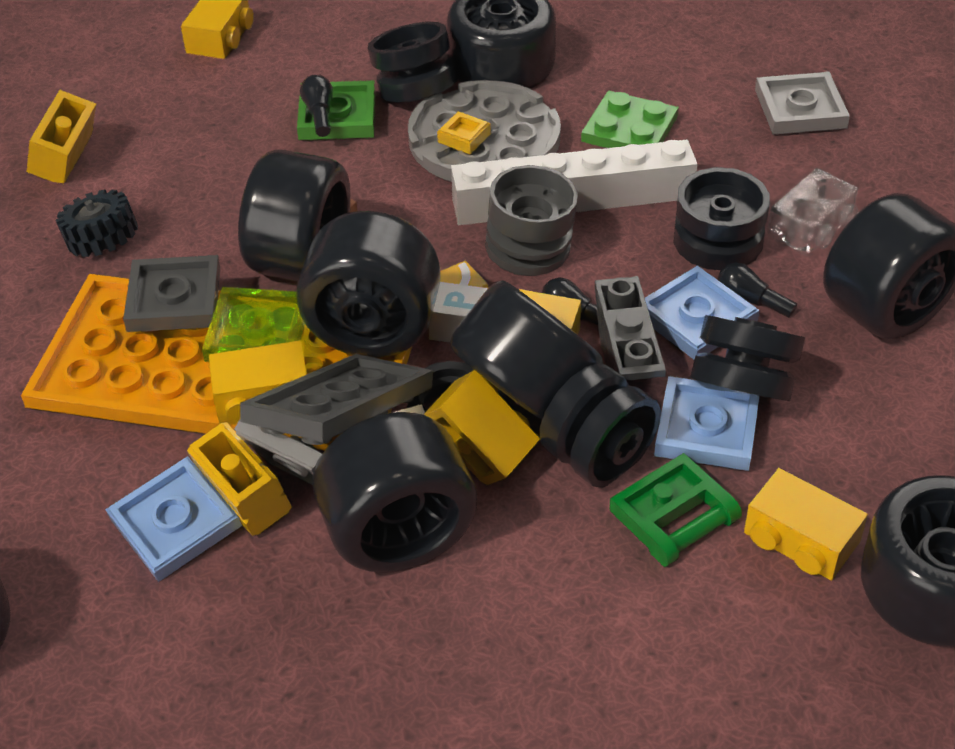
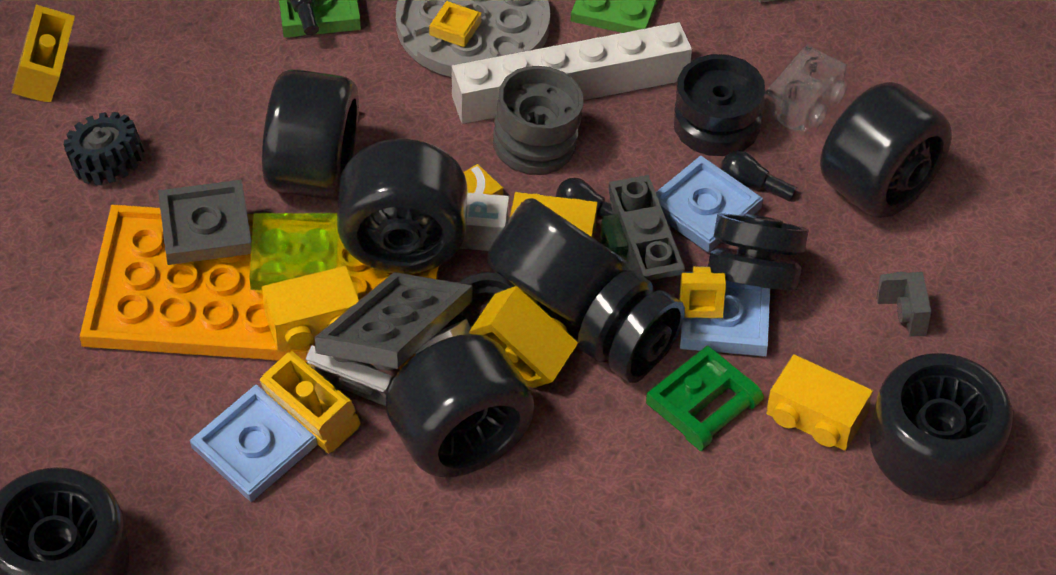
camera: 10 degrees left, 5 degrees up
(594, 334) = (613, 235): none -> clear green tile
(682, 397) = (703, 293): none -> yellow tile
(916, 419) = (911, 298): none -> dark grey bracket

